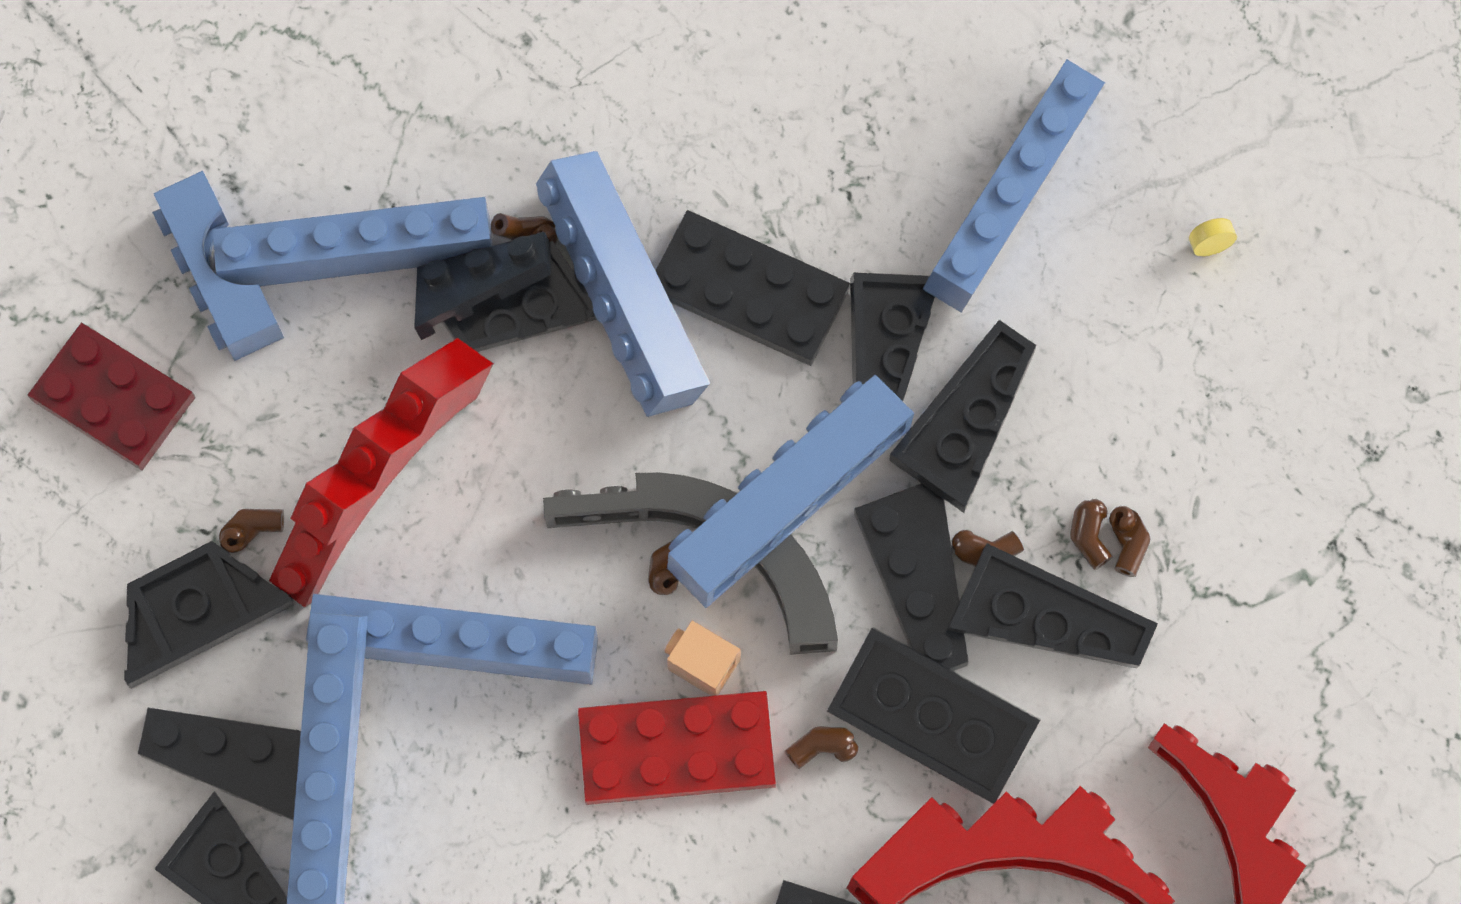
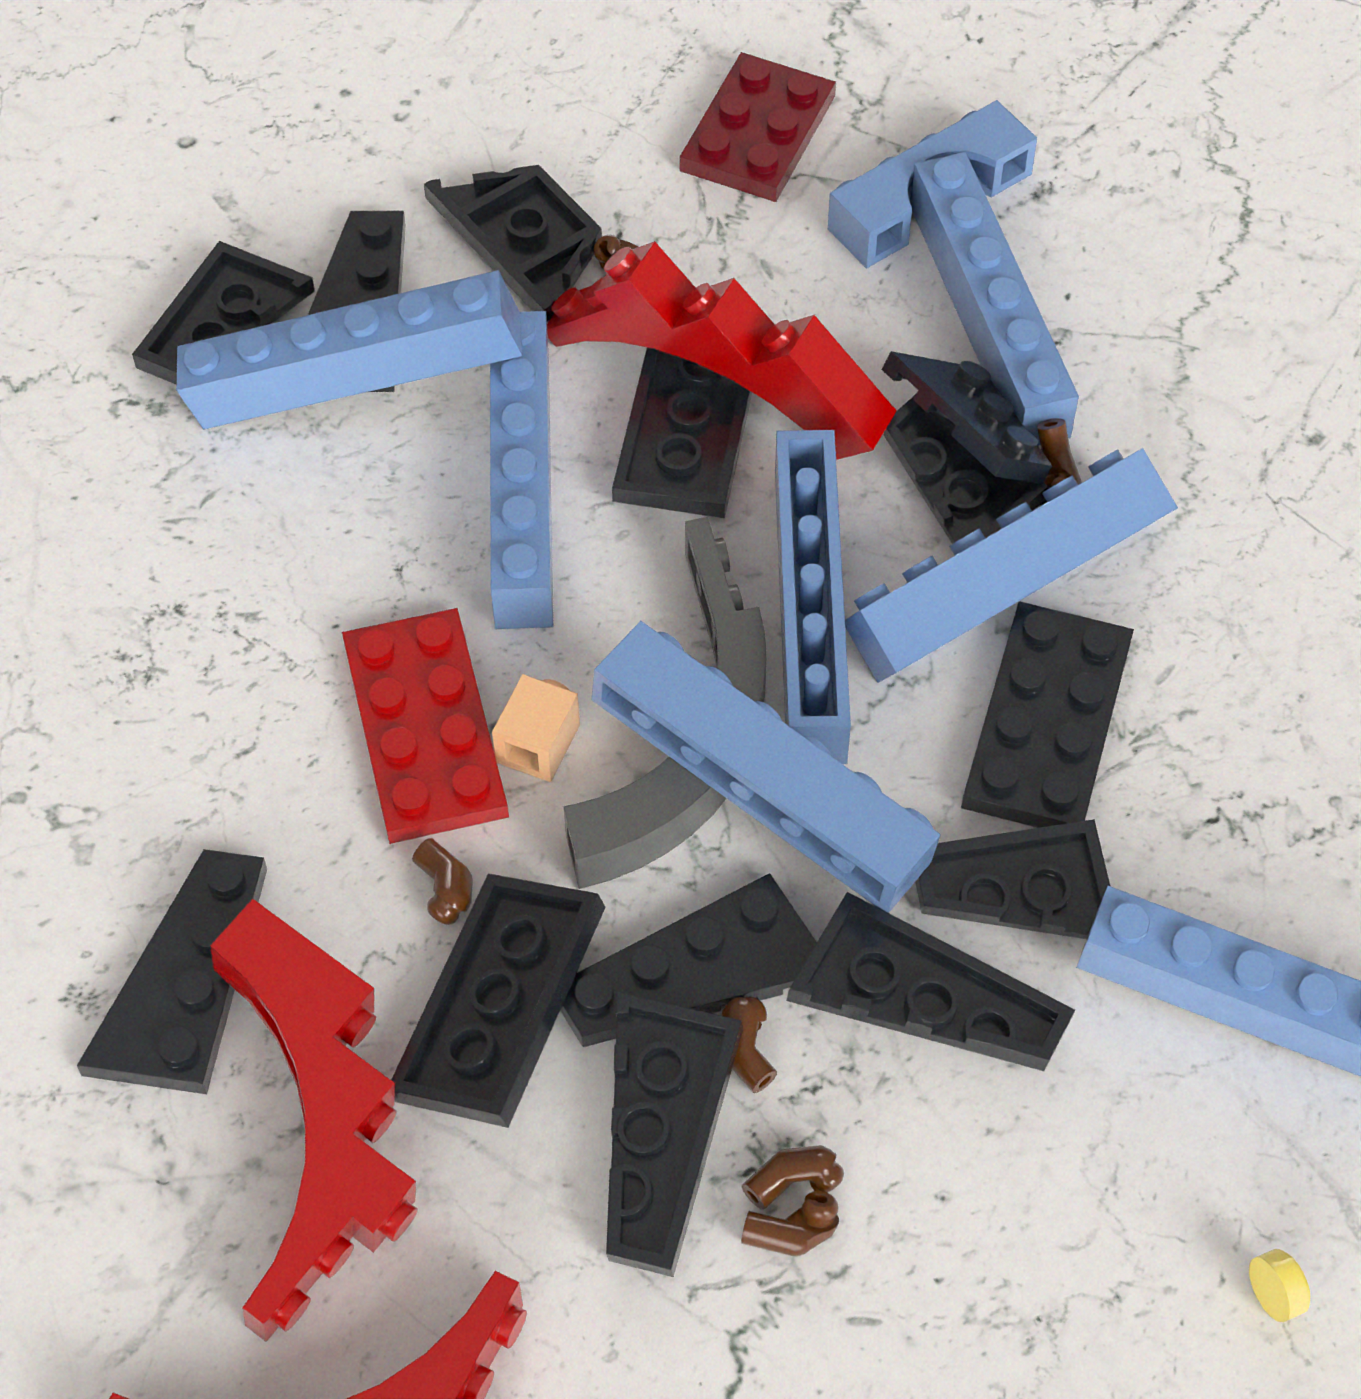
camera: 80 degrees right, 15 degrees down
(445, 510) = (681, 438): none -> black plate
(622, 432) = (812, 589): none -> medium blue brick

